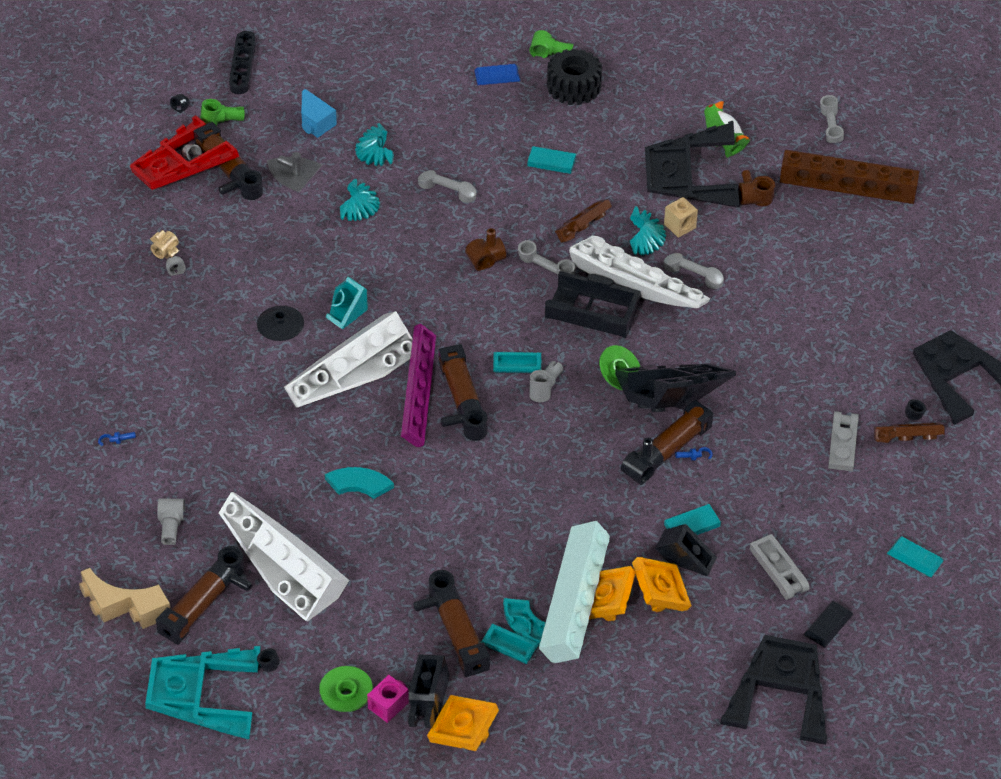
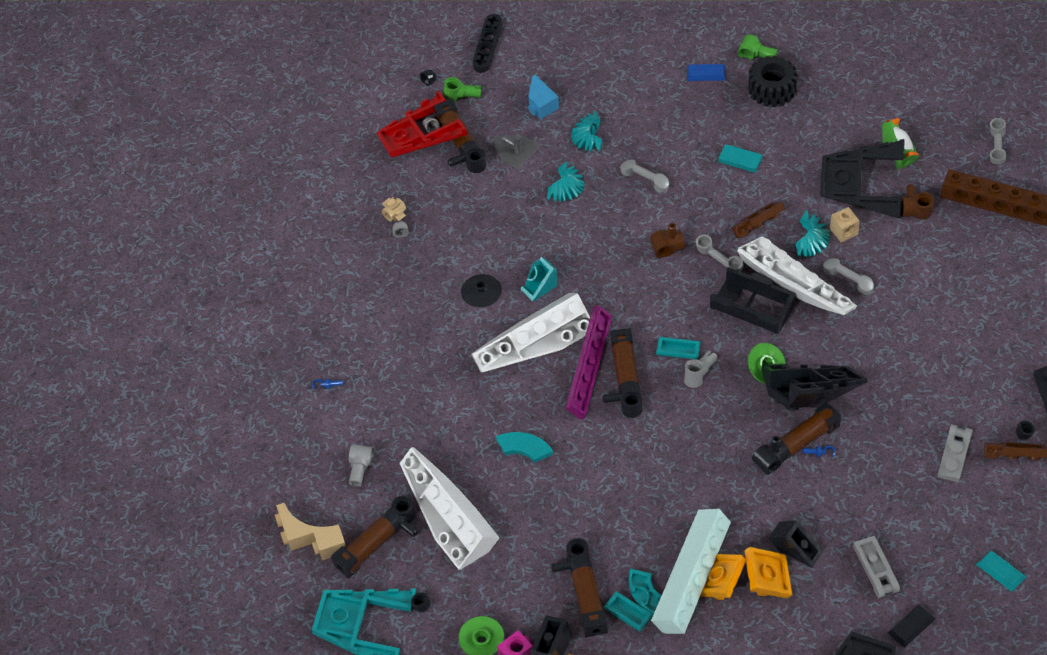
camera: 15 degrees right, 5 degrees up
(698, 520) = (809, 515): teal tile -> none

